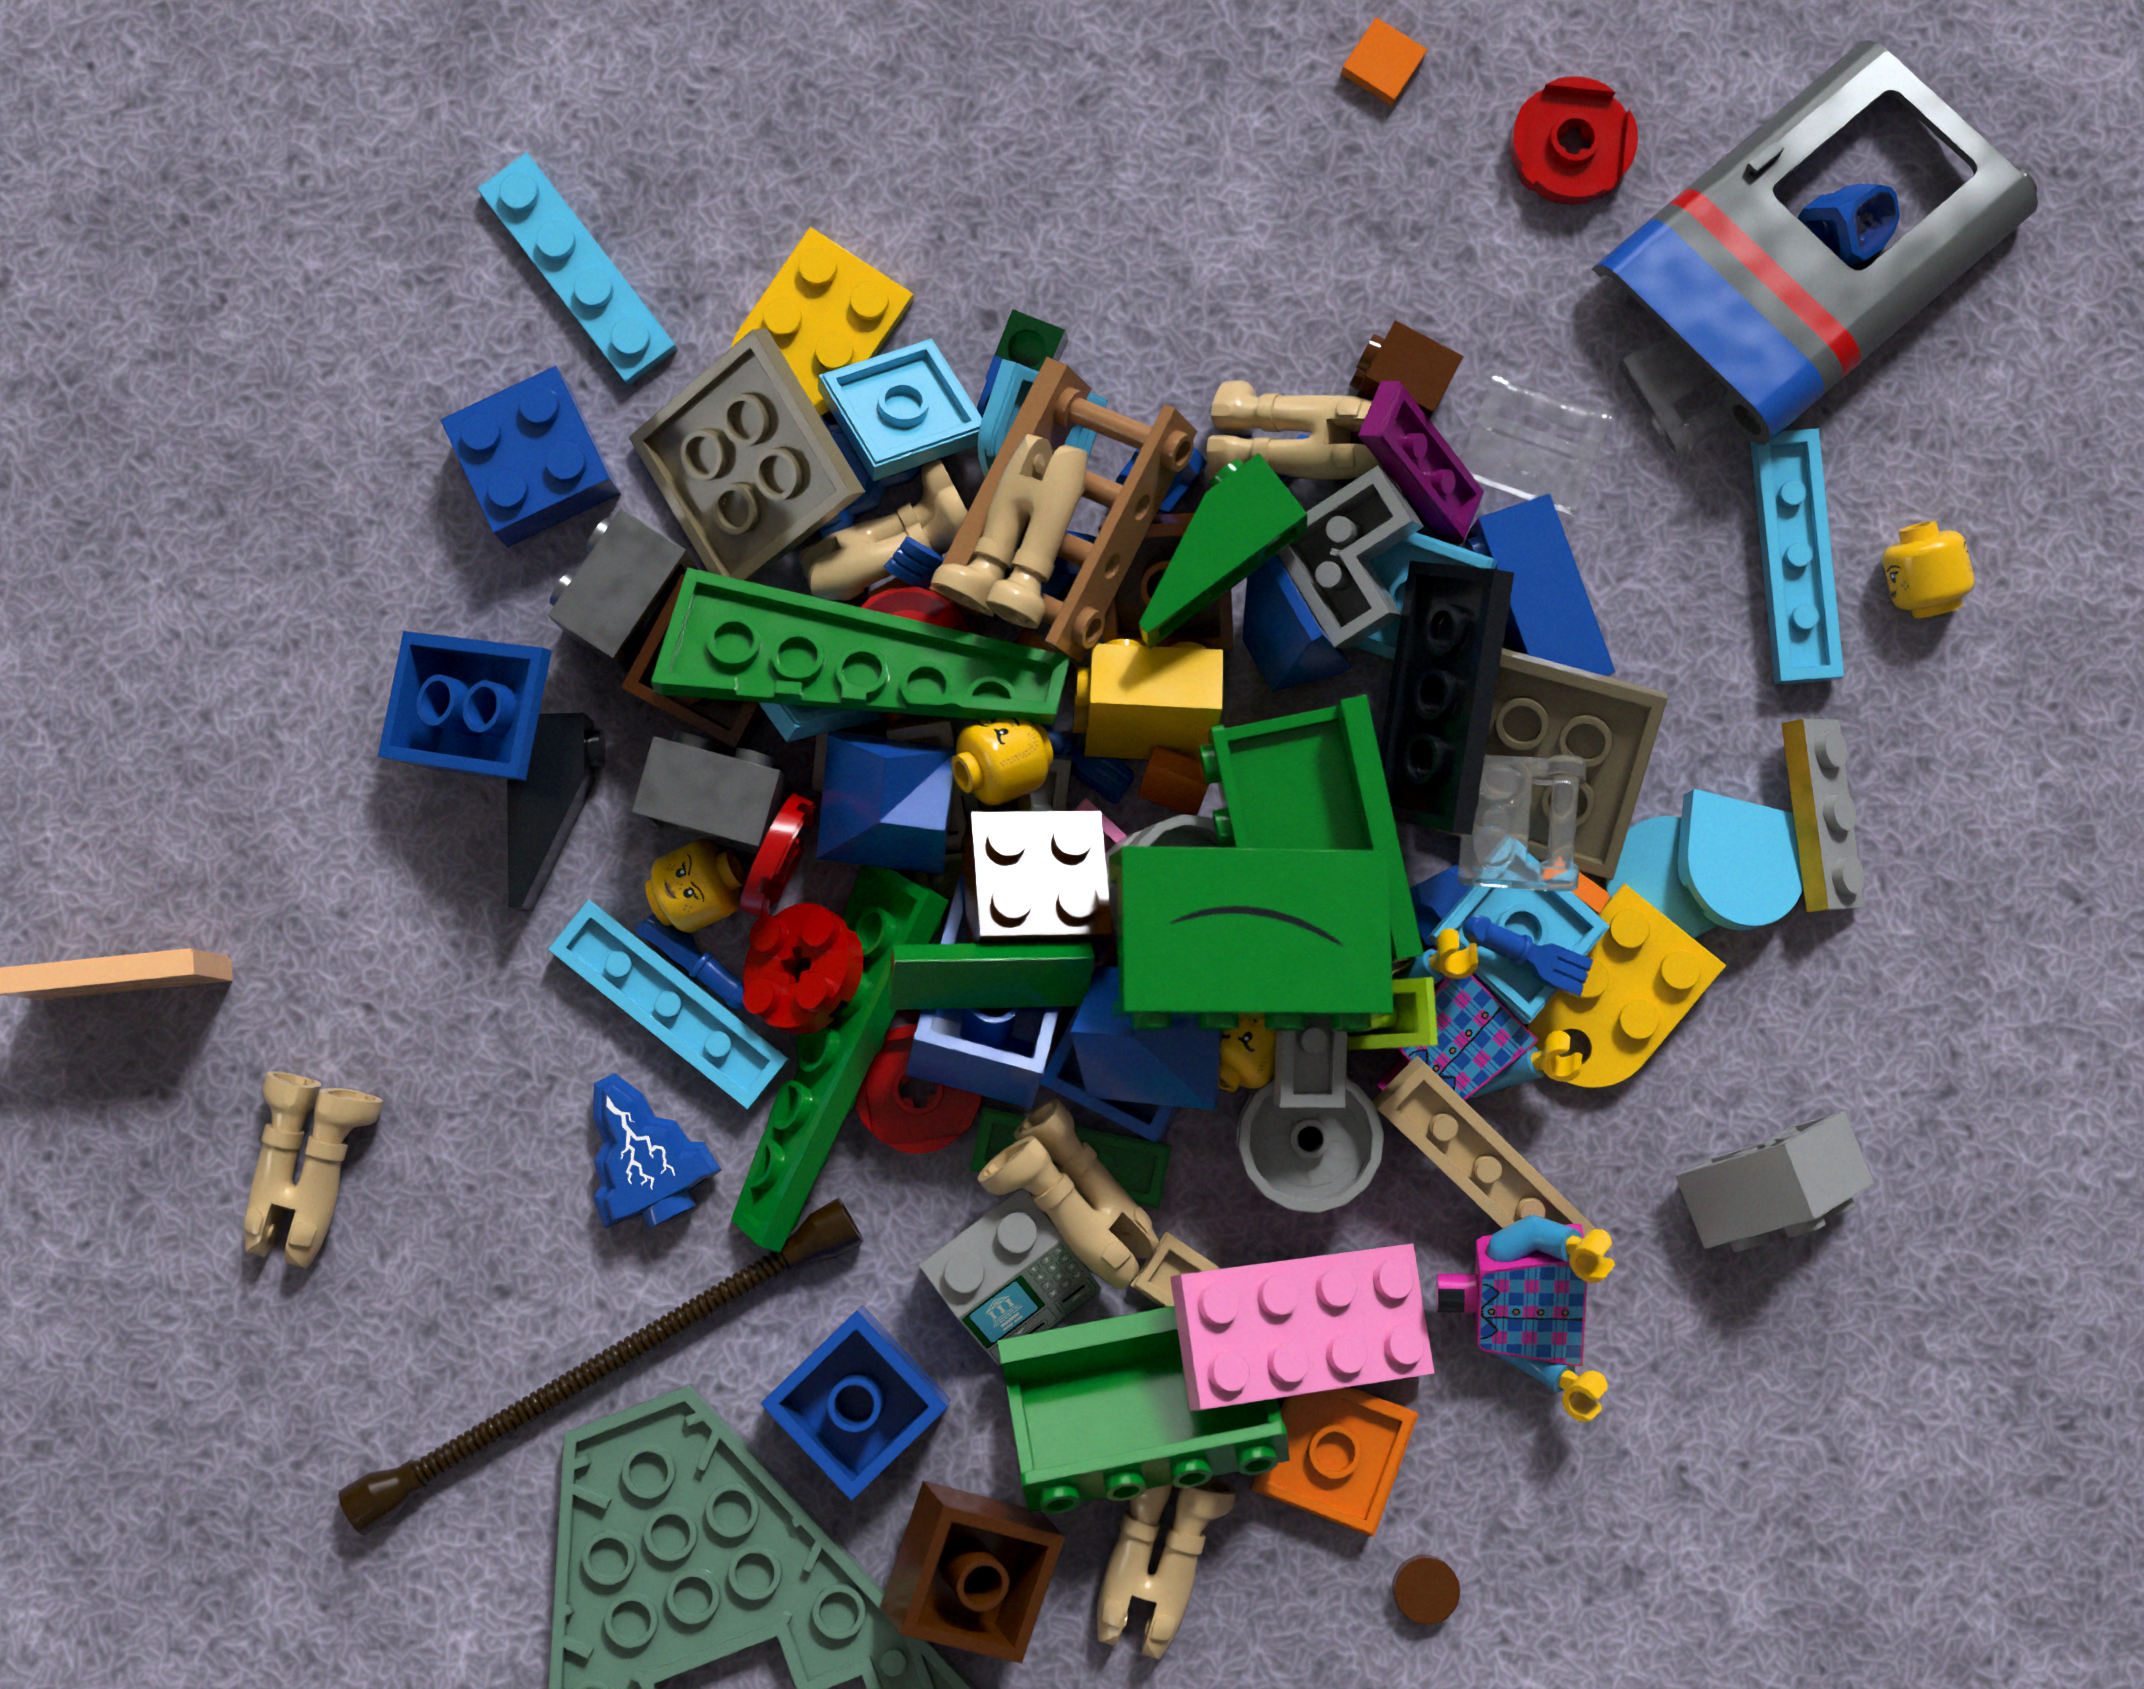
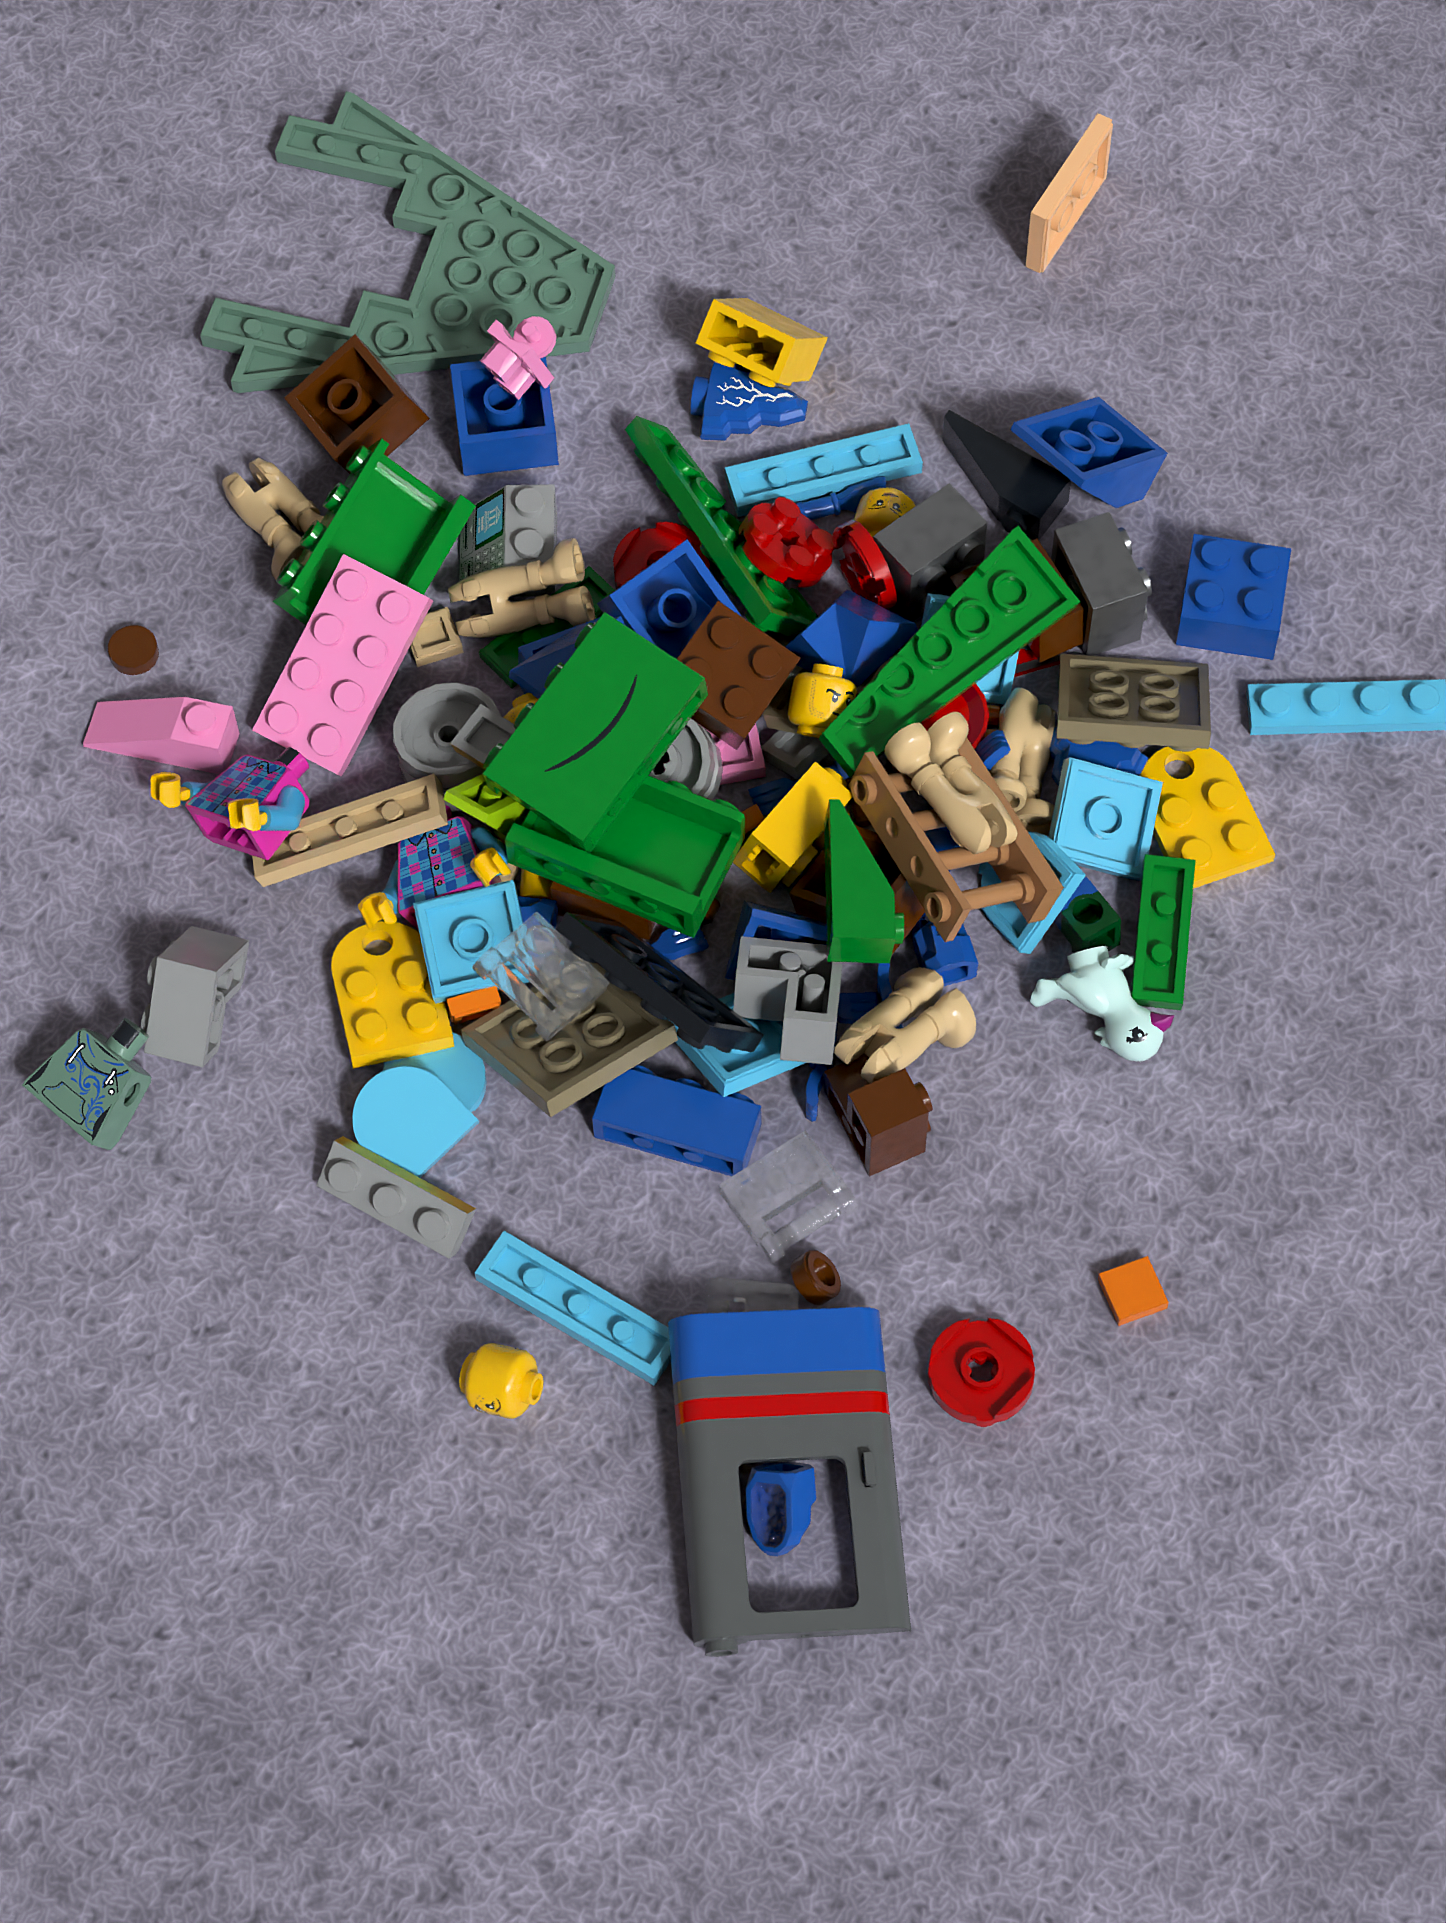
camera: 130 degrees right, 20 degrees down
(317, 1190) = (900, 257): tan piece -> none
(384, 1493) = (616, 465): dark brown hose -> none
(564, 1178) = (761, 341): none -> yellow brick
(806, 1407) = (517, 359): none -> bright pink hips
(984, 273) = (1163, 932): none -> green plate
(989, 975) = (698, 595): green tile -> none
(1097, 288) = (1102, 990): none -> light aqua animal
(1340, 1455) = (248, 649): orange plate -> none
(1421, 462) = (823, 1083): magenta tile -> none
(1504, 1470) = (166, 731): none -> bright pink slope
(1548, 963) = (441, 933): blue piece -> none
(1600, 354) = (815, 1277): none -> reddish brown tile
(1947, 1205) = (94, 1082): none -> sand green torso

